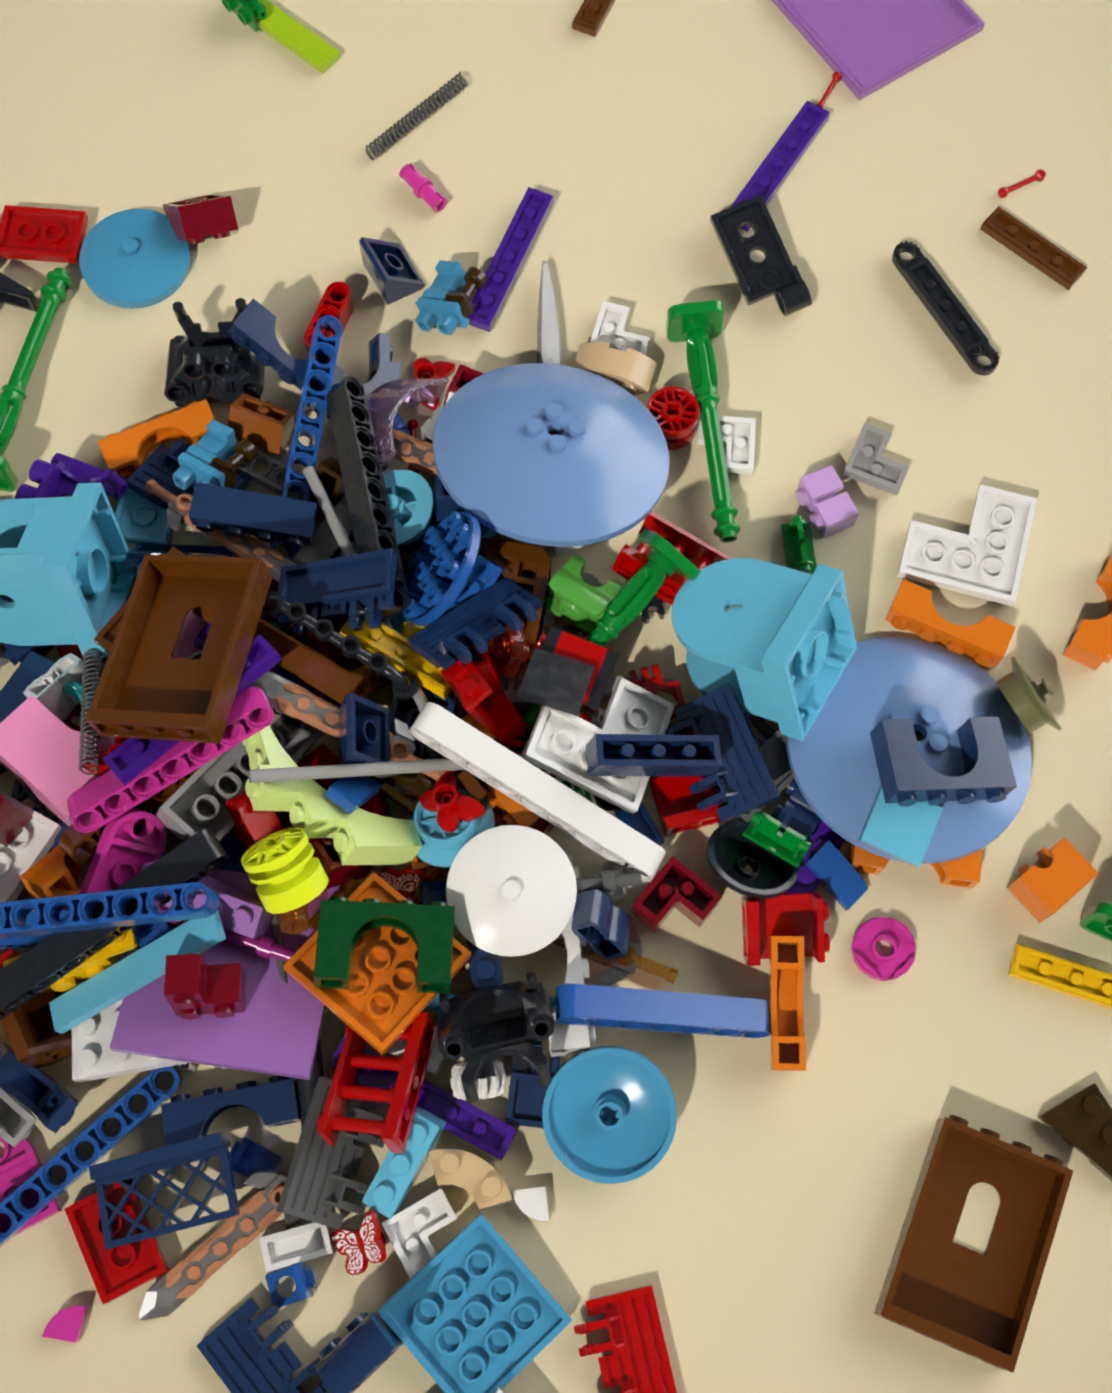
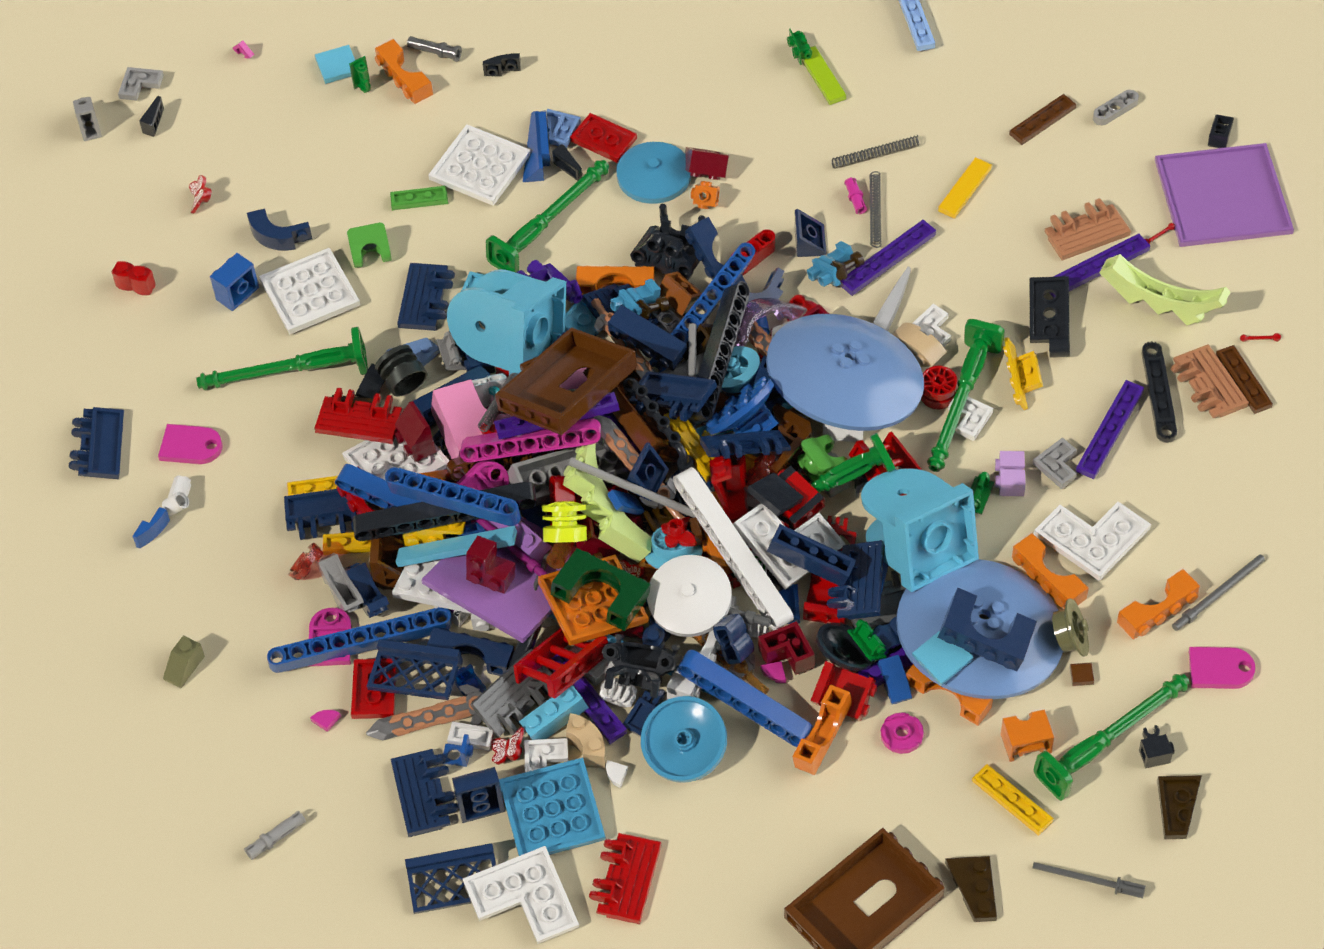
camera: 30 degrees right, 15 degrees down
(221, 254) = (711, 192): none -> orange brick
(449, 193) = (877, 226): none -> dark grey piece
(556, 122) = (964, 187): none -> yellow tile
(670, 937) = (774, 672): none -> dark pink tile
(739, 123) = (1086, 234): none -> nougat hinge
(770, 351) = (1024, 372): none -> yellow bracket
(914, 387) = (1109, 429): none -> dark purple plate
(920, 174) = (1160, 296): none -> yellowish green arch
(997, 267) = (1209, 382): none -> nougat hinge
(1063, 751) = (1081, 674): none -> reddish brown tile

